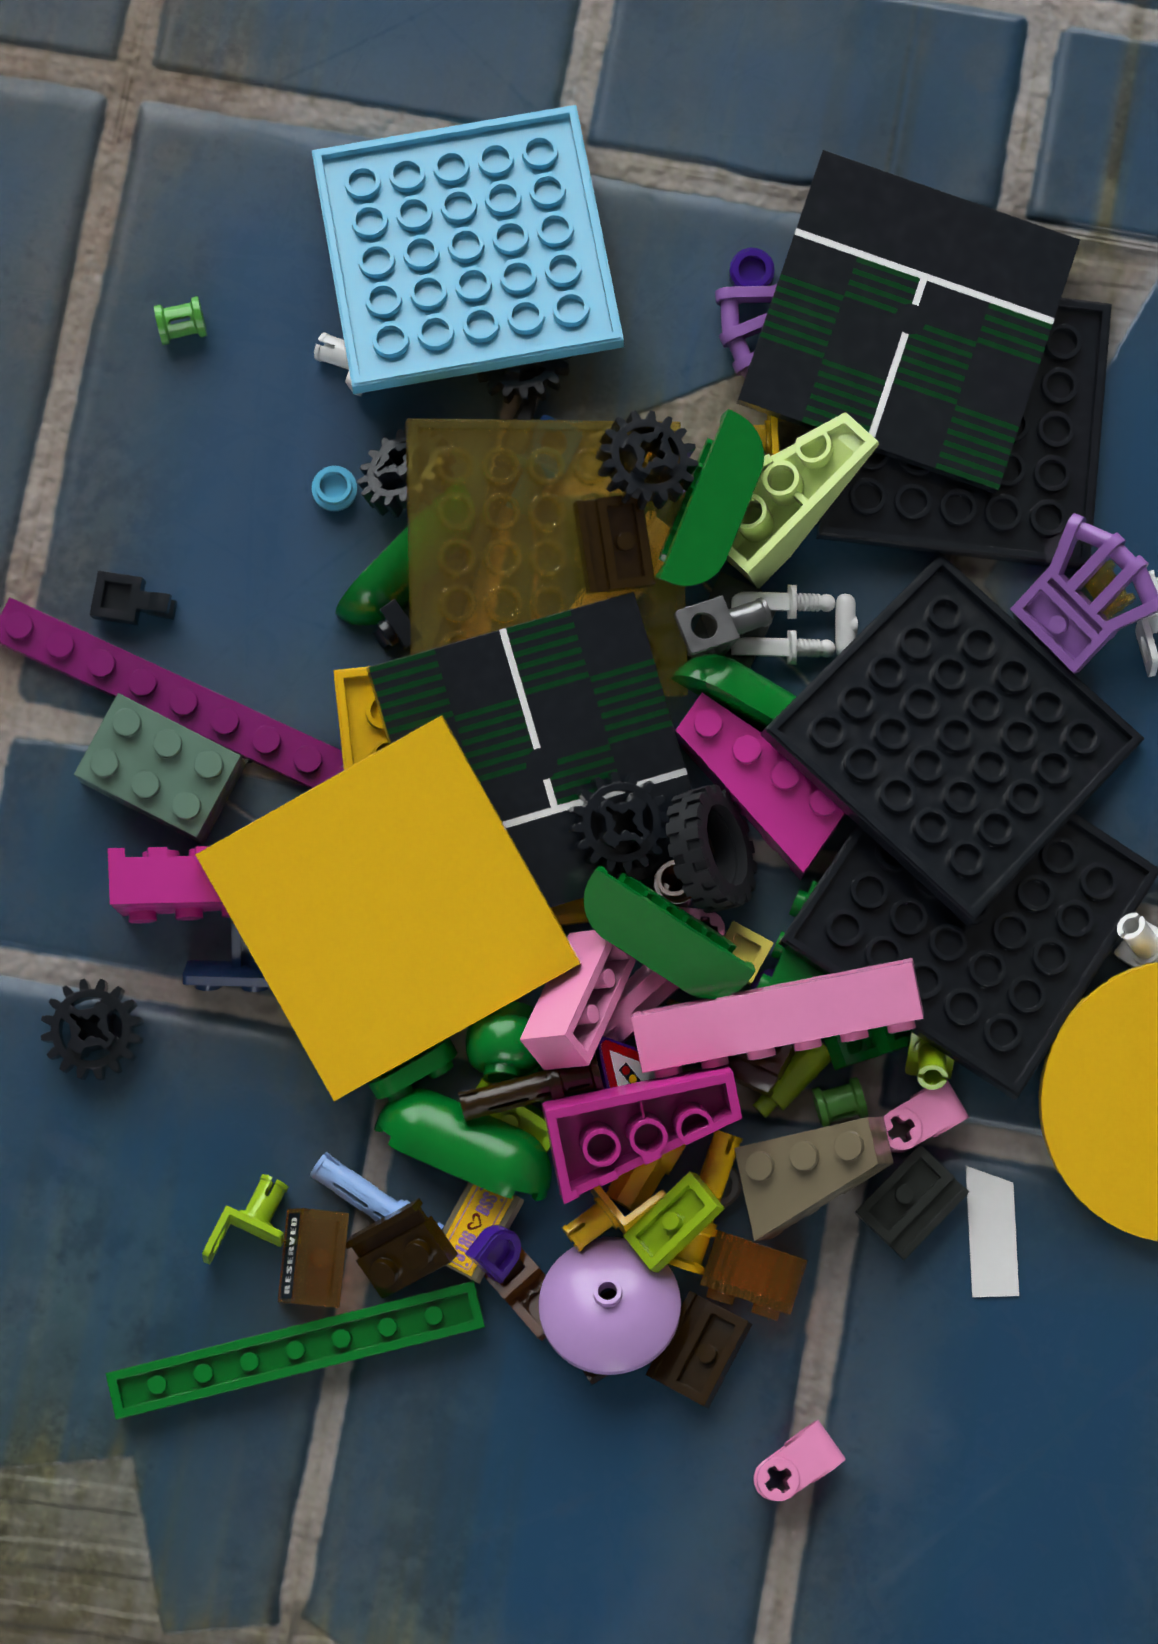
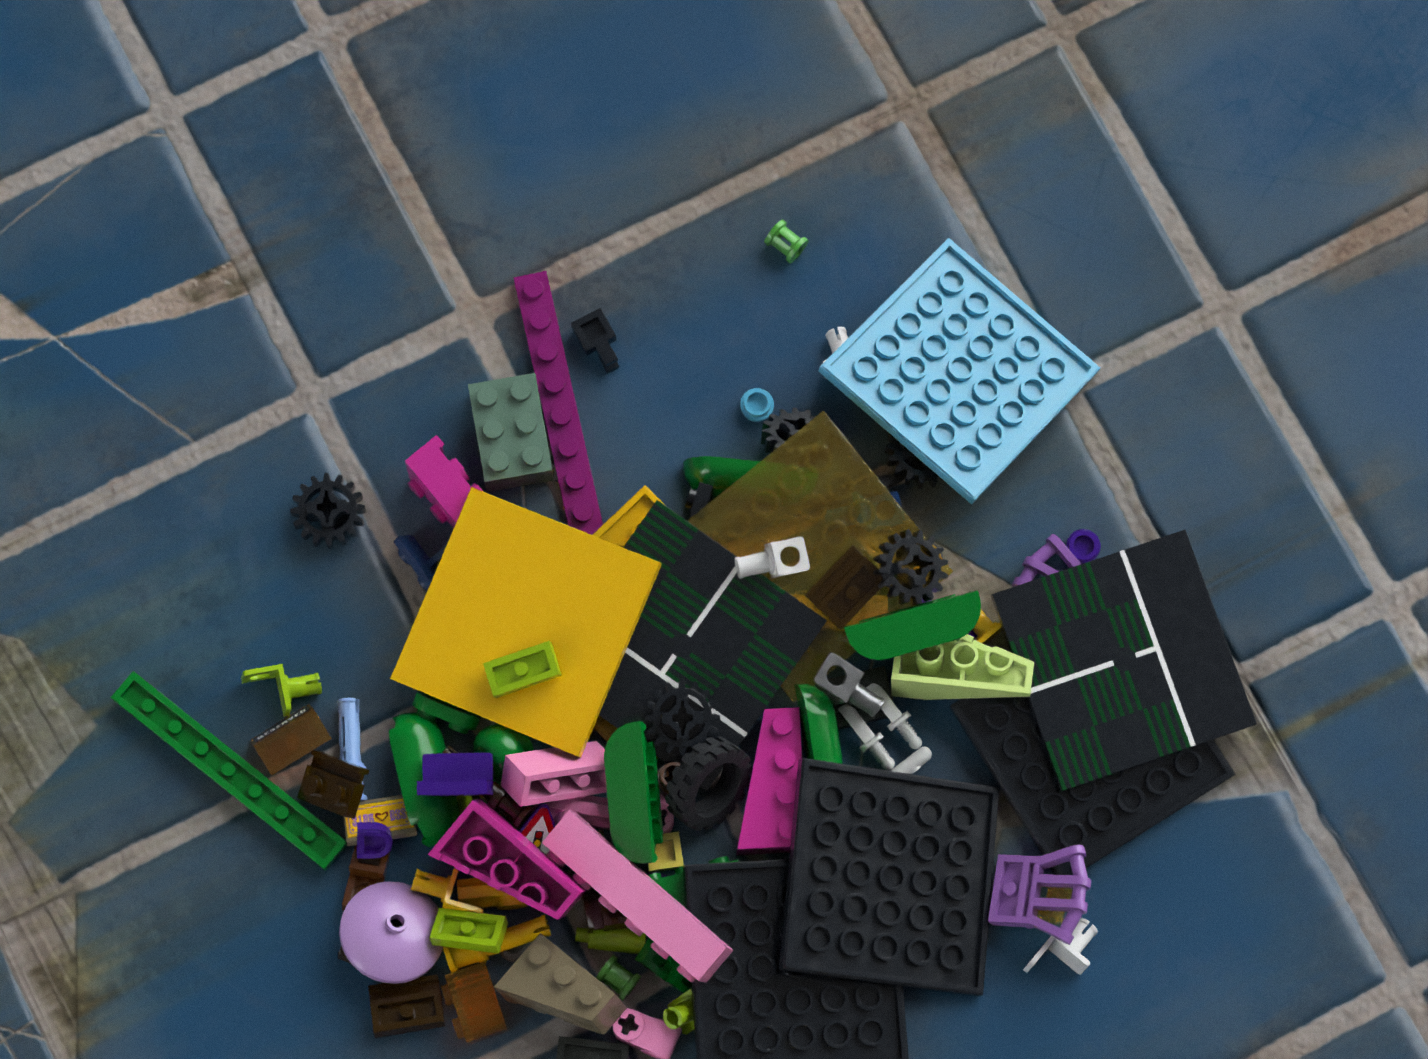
camera: 45 degrees right, 5 degrees down
(441, 951) = (522, 669): none -> lime plate
(499, 1108) = (456, 774): none -> dark purple panel
(527, 597) = (770, 560): none -> white bracket

